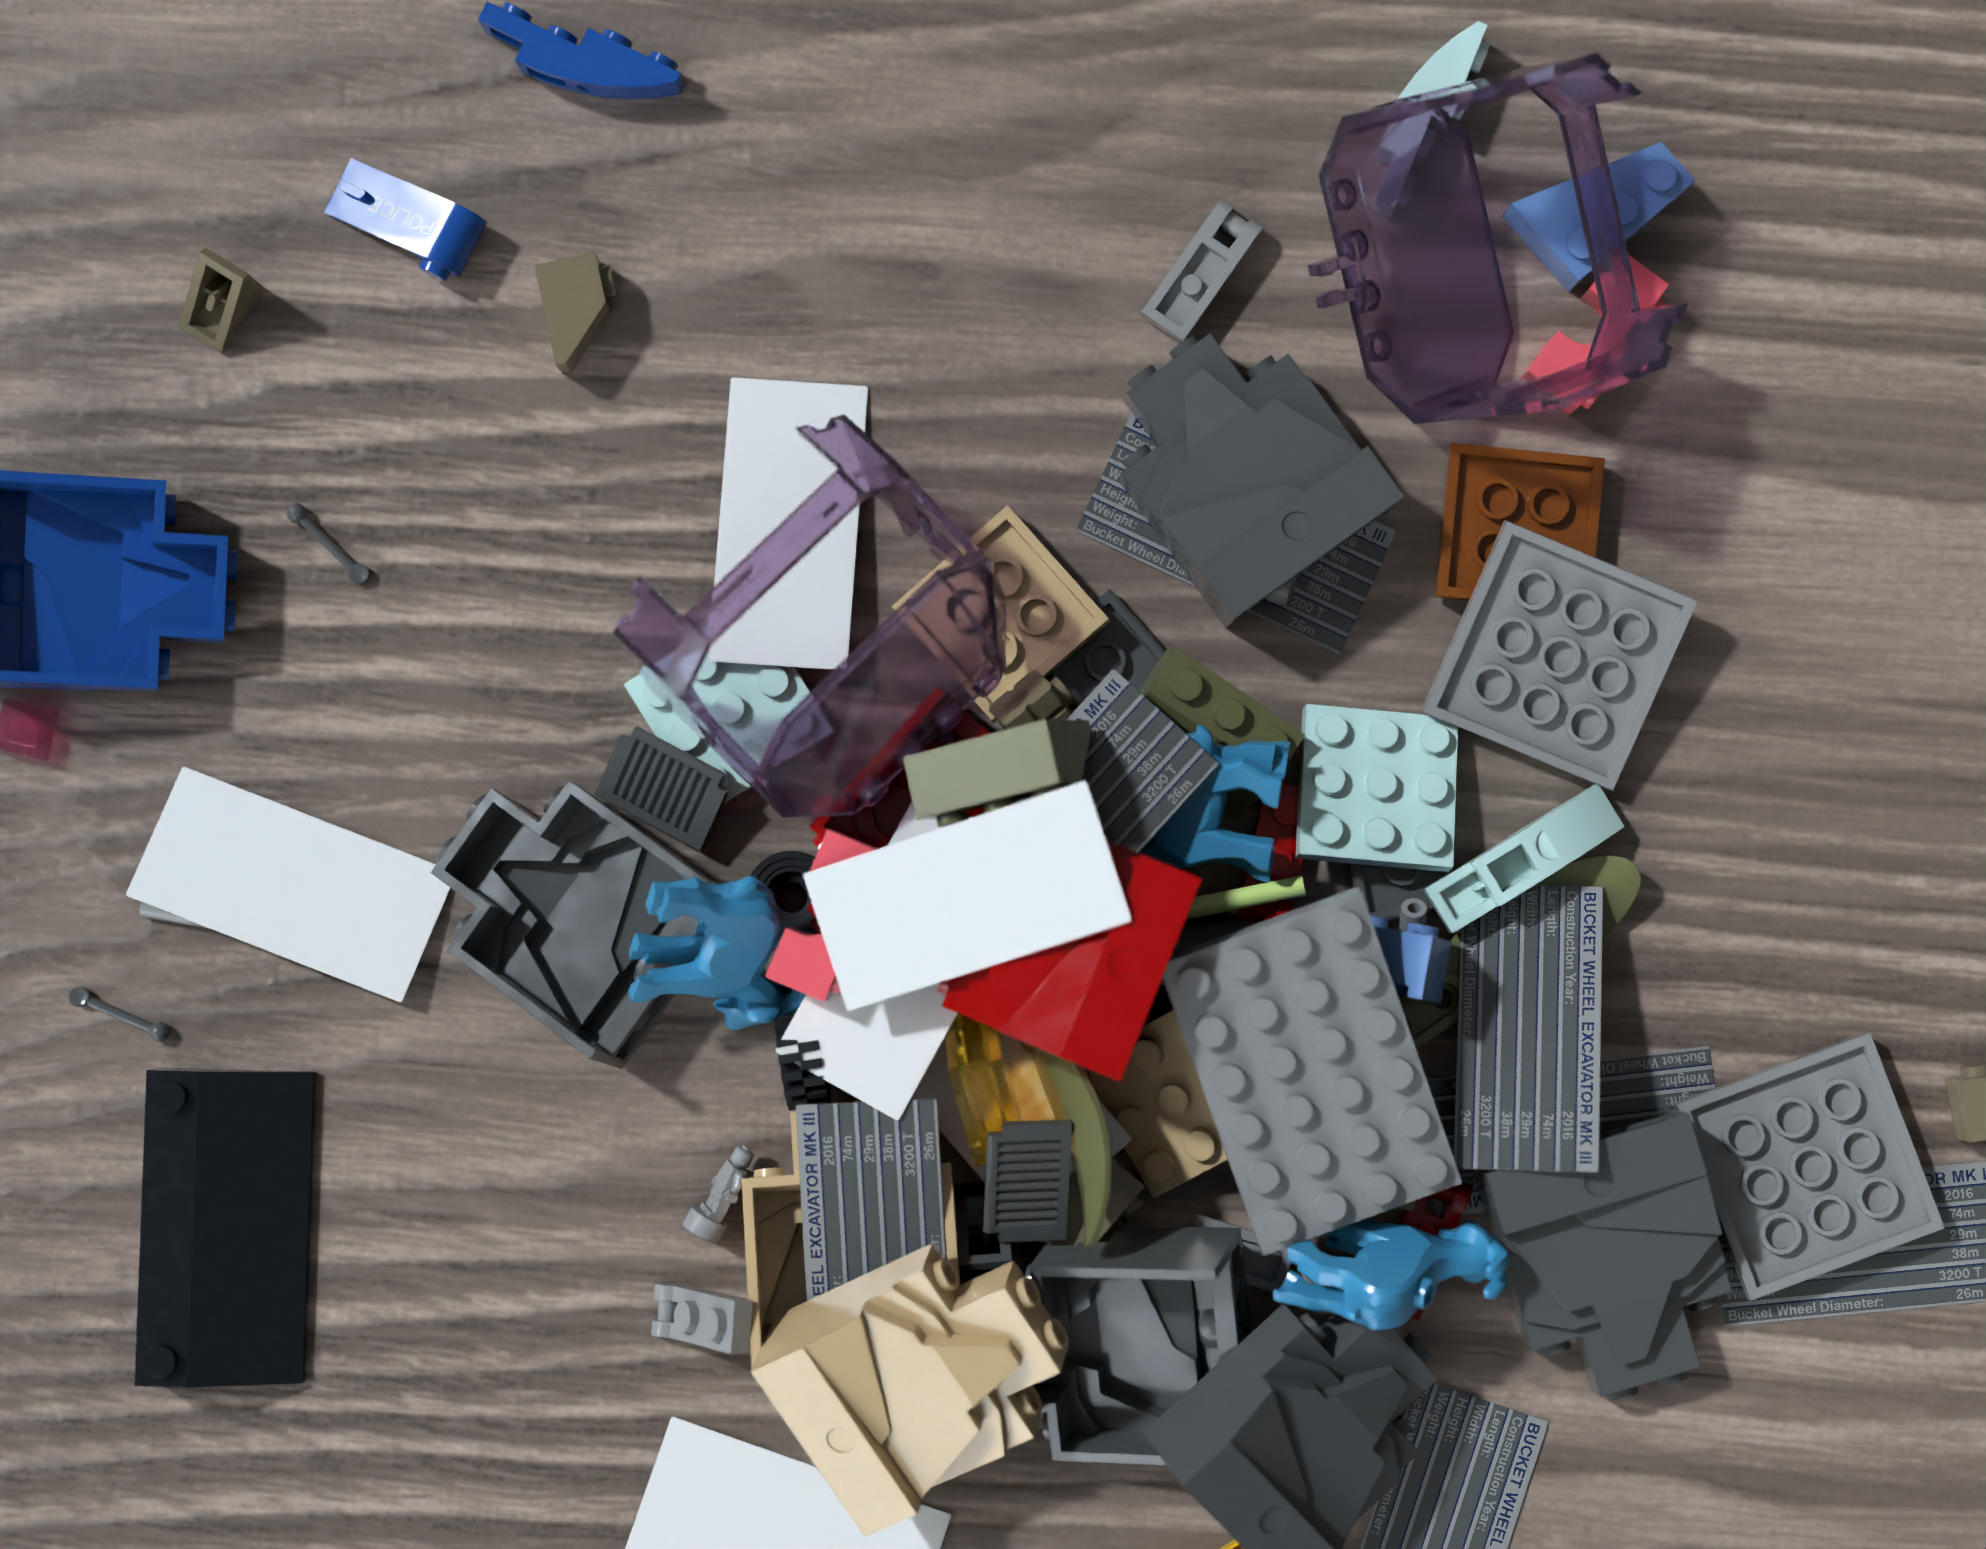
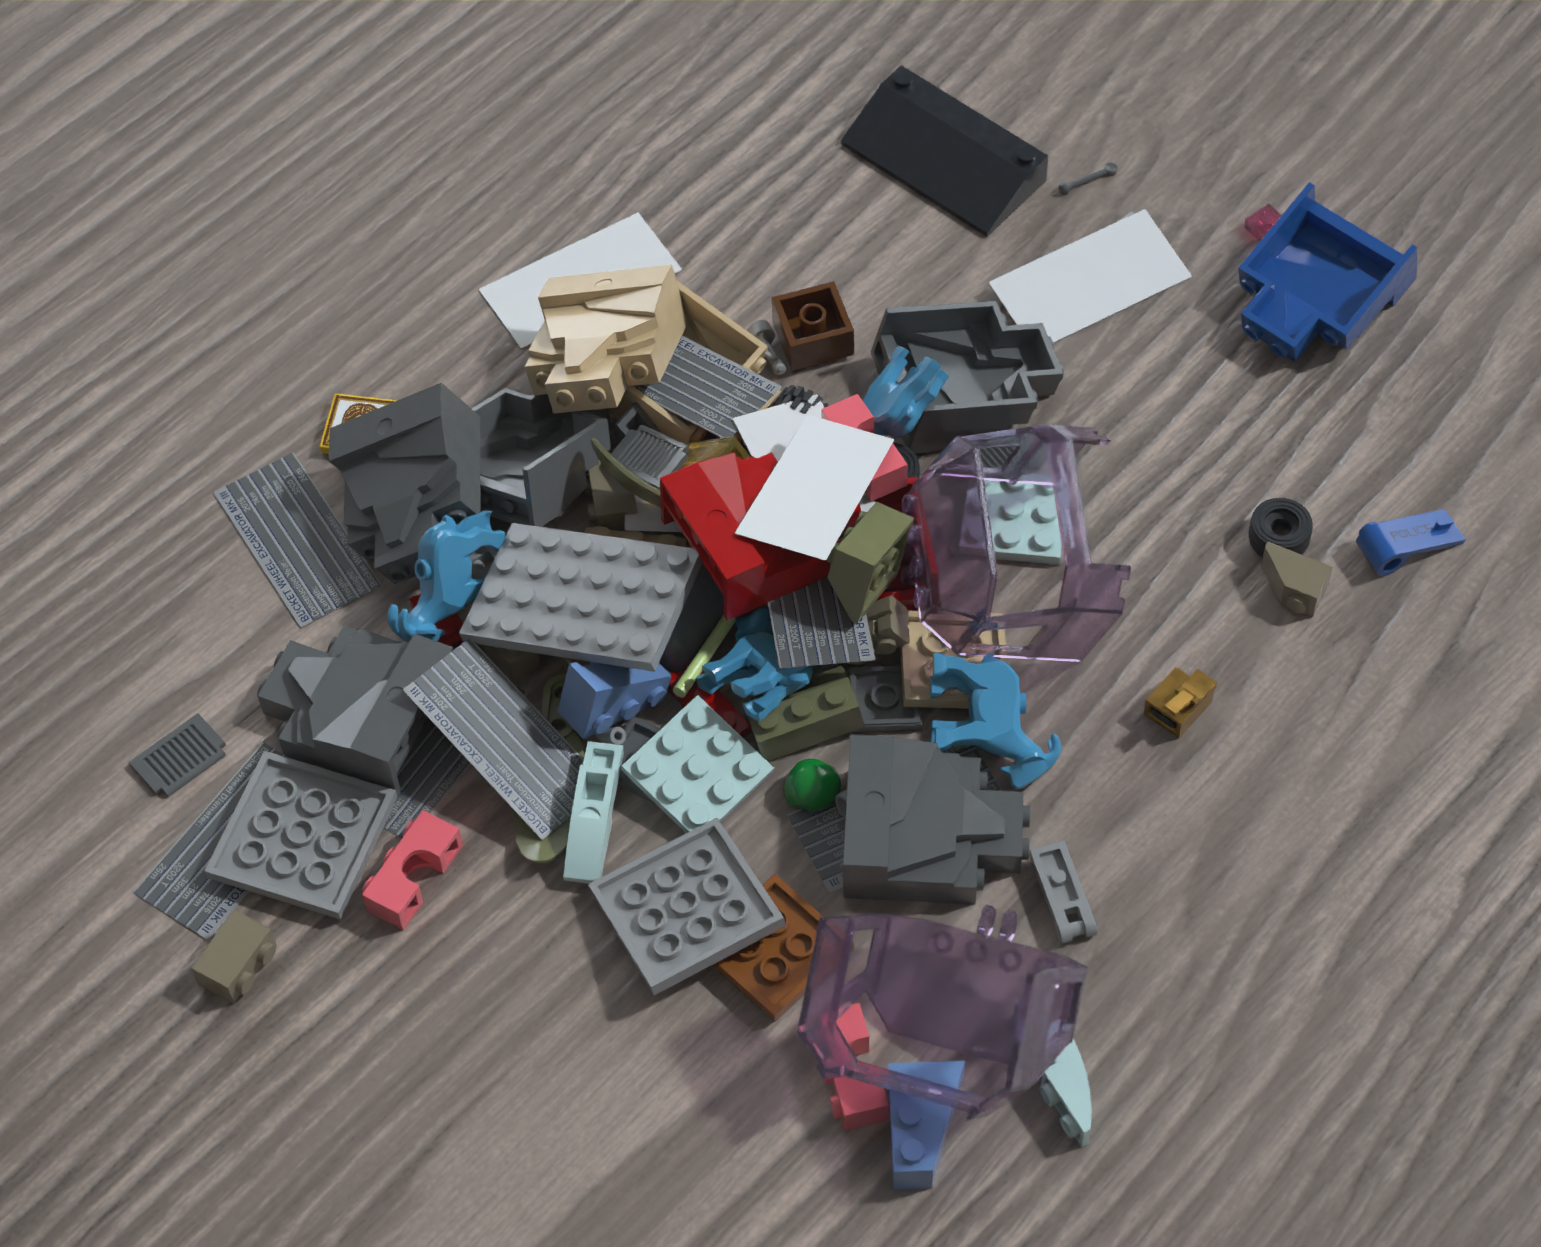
camera: 135 degrees right, 30 degrees down
(217, 300) = (1433, 433): dark tan slope -> none
(357, 572) = (1229, 405): dark grey hinge -> none
(490, 355) = (1280, 512): none -> black tyre
(598, 67) = (1431, 672): blue slope -> none
(650, 1161) = (813, 325): none -> reddish brown brick
(702, 1317) = (717, 292): light grey plate -> none
(765, 478) = (1138, 641): white sticker -> none
(848, 321) = (1180, 700): none -> pearl gold piece
(1059, 496) = (994, 716): none -> dark azure animal
(1287, 649) = (812, 785): none -> green hair
(1797, 997) = (424, 844): none -> coral arch
(1820, 1402) = (179, 756): none -> dark grey window

